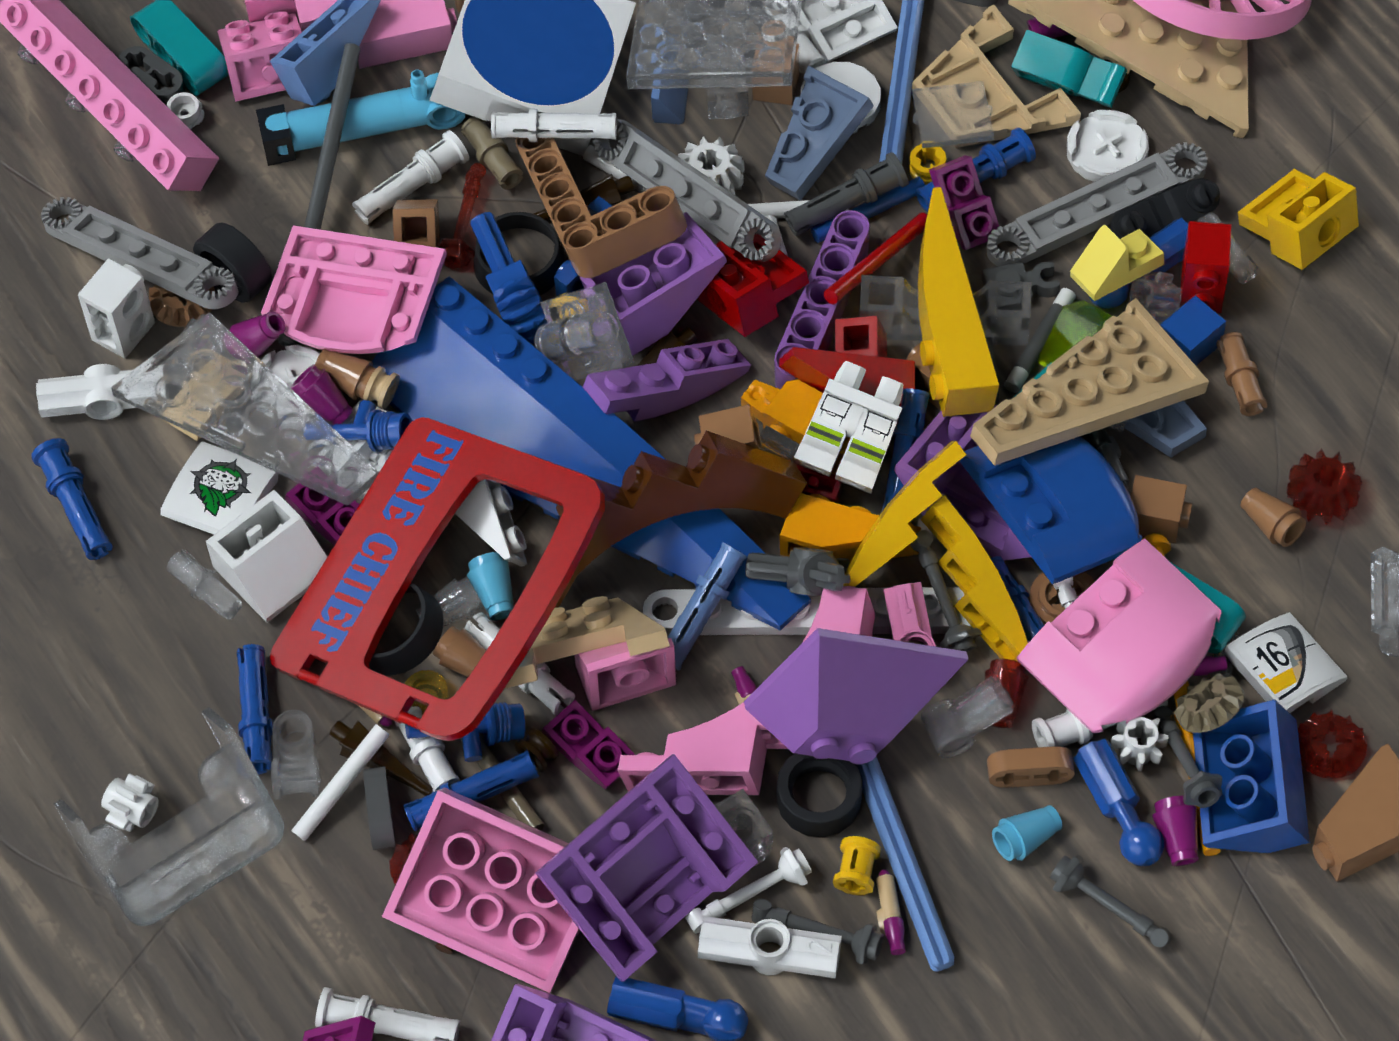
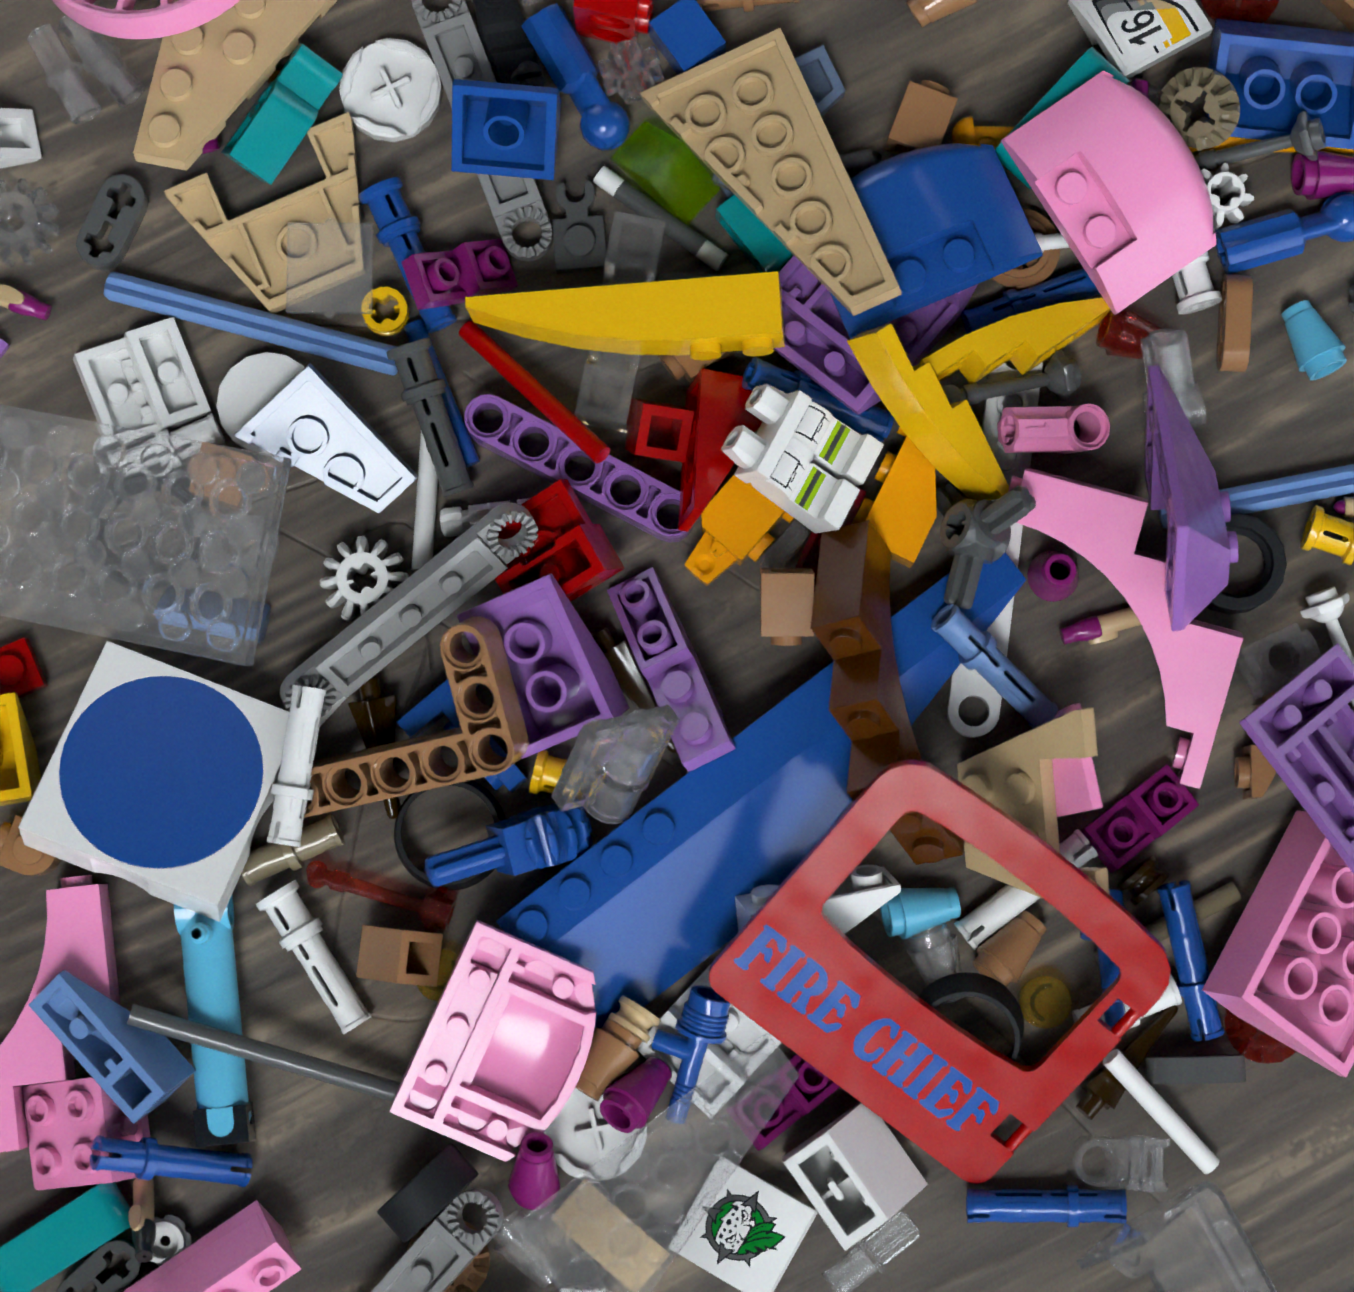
camera: 85 degrees left, 25 degrees up
(201, 87) = (142, 1219): none -> piece
(244, 95) = (150, 1159): none -> blue pin
(785, 641) = (1044, 584): none -> magenta cone
(1083, 202) = (505, 129): none -> blue slope
(1115, 262) = (593, 106): light yellow slope -> none

